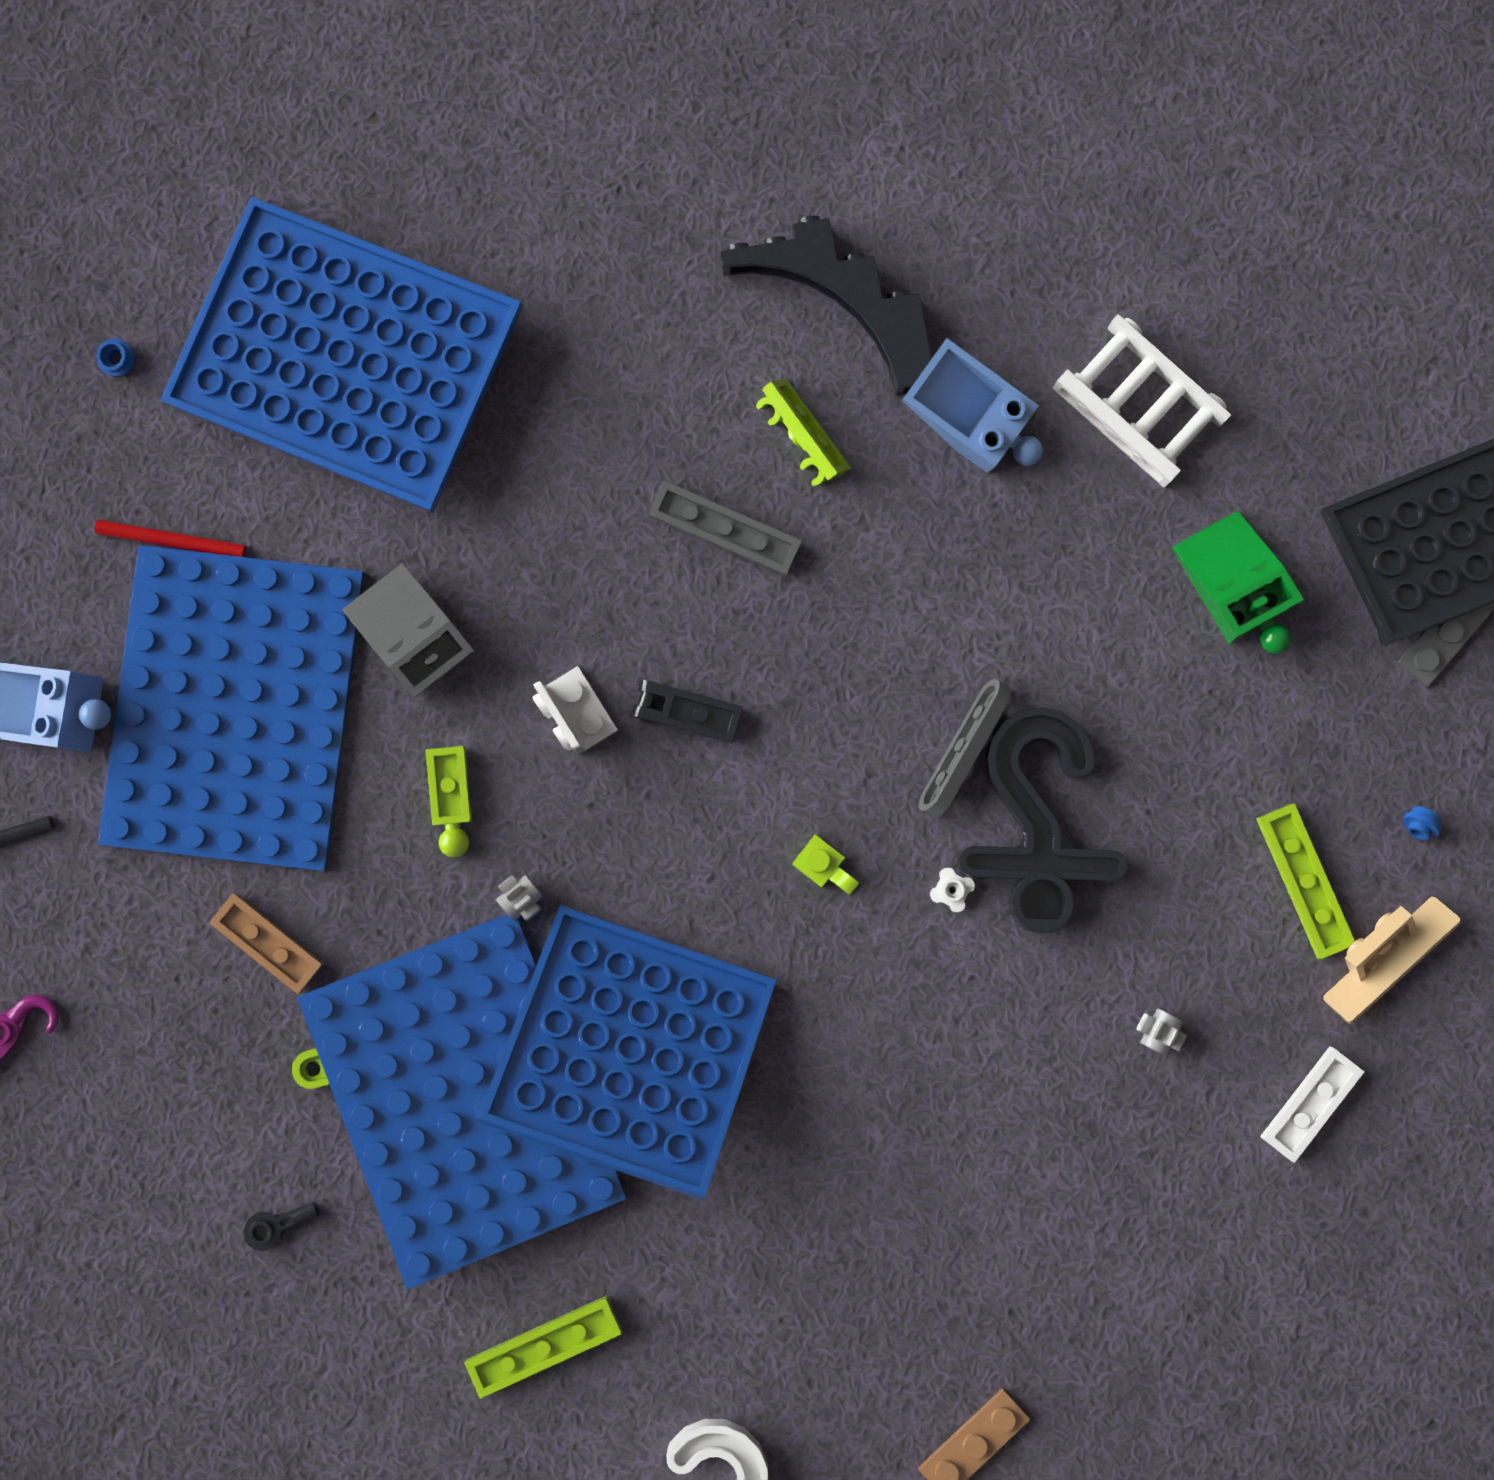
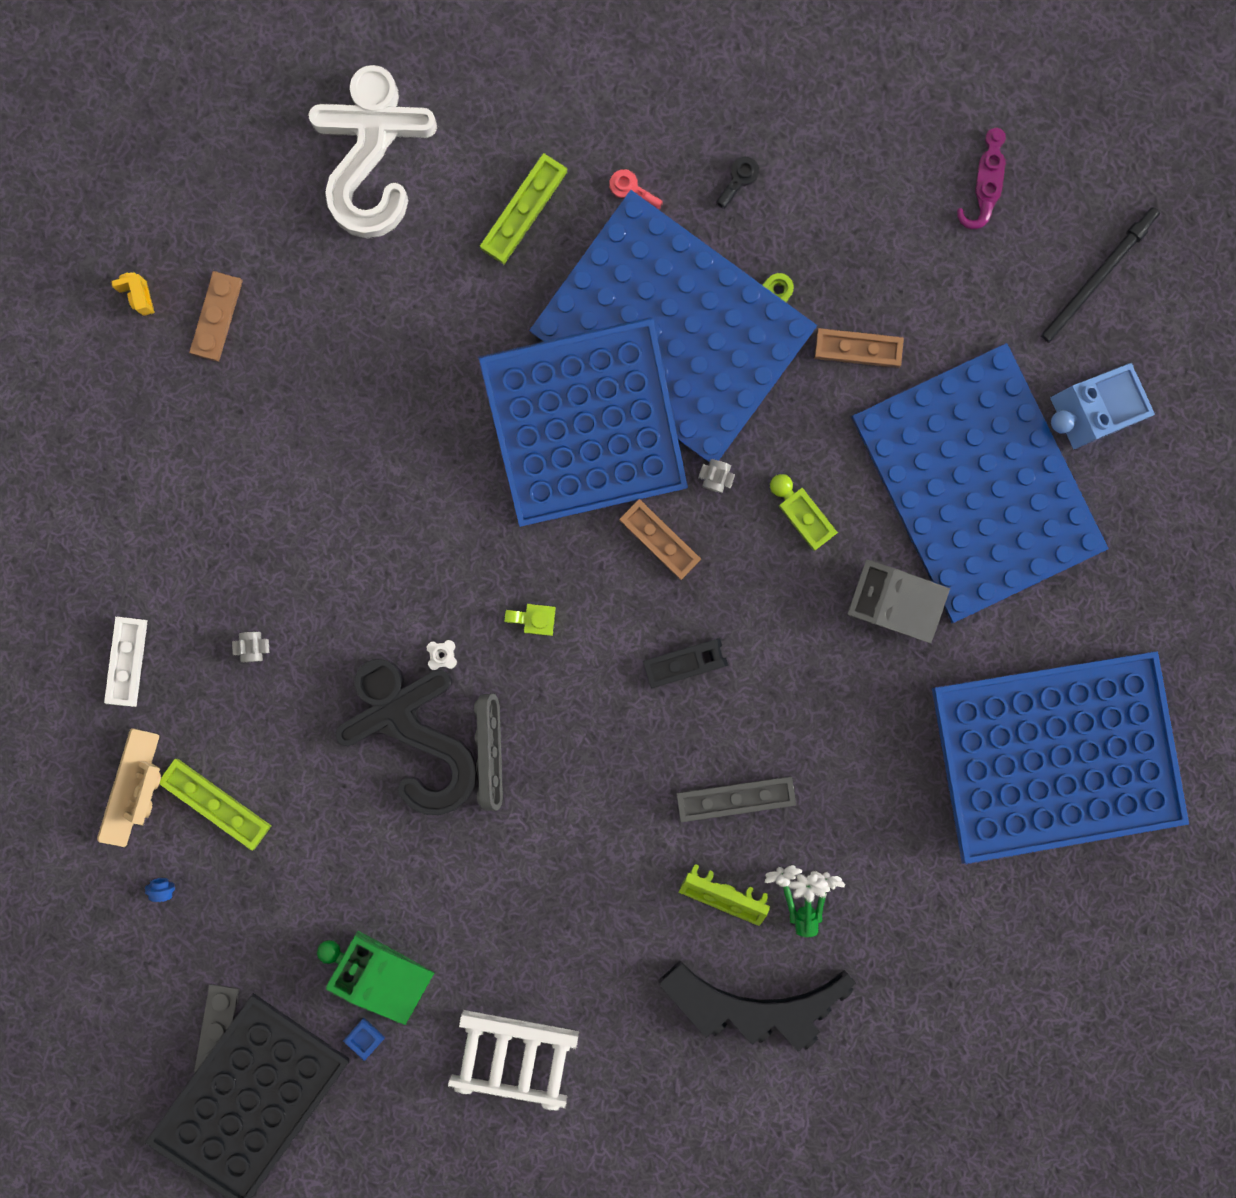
camera: 145 degrees right, 0 degrees up
(105, 354) = (1211, 655): blue plate -> none
(168, 539) = (1091, 565): red bar -> none
(407, 1305) = (624, 181): none -> coral plate
(576, 710) = (757, 617): white bracket -> none
(627, 866) = (660, 539): none -> medium nougat plate
(728, 353) = (806, 918): none -> plant
(966, 402) = (627, 985): medium blue slope -> none
(1292, 523) = (364, 1039): none -> blue tile

